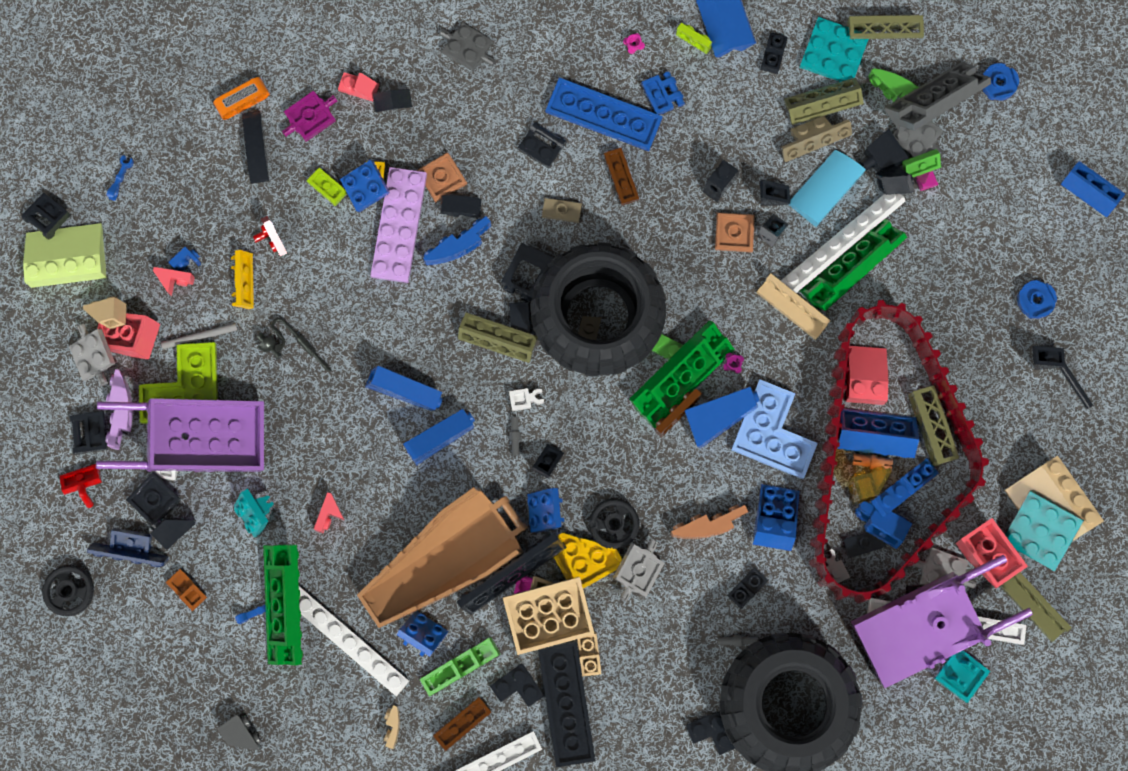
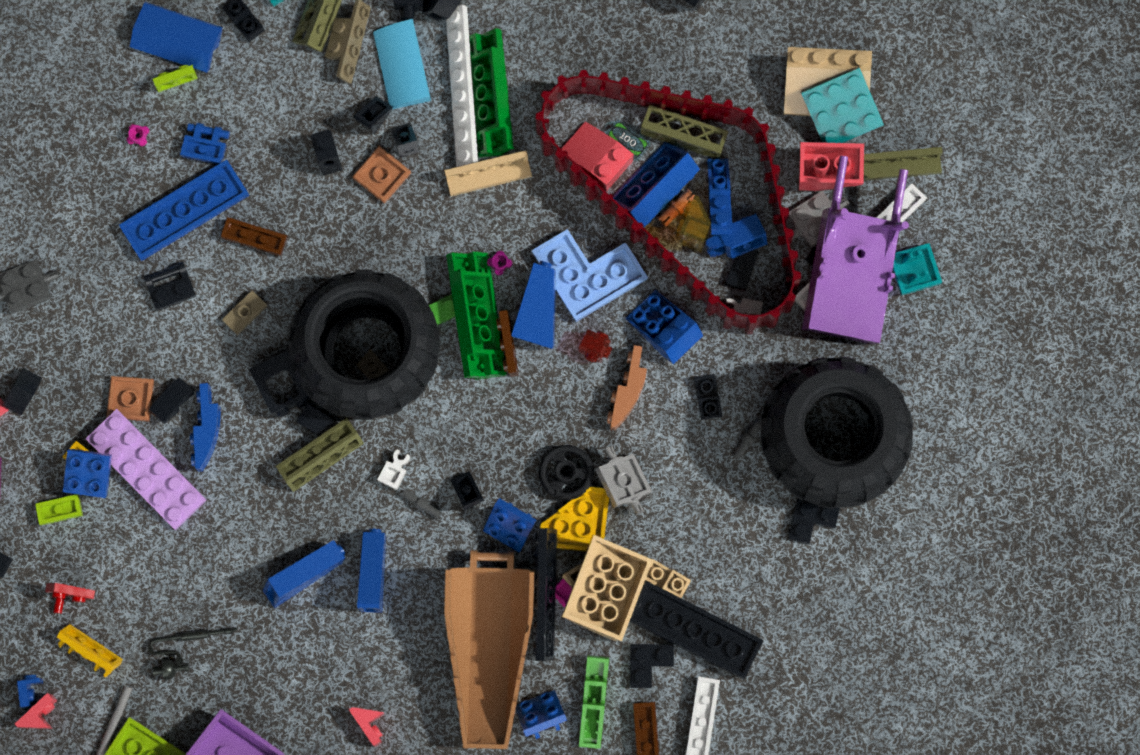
camera: 50 degrees left, 0 degrees up
(723, 477) = (595, 346): none -> clear red brick
(896, 389) = (629, 139): none -> tile

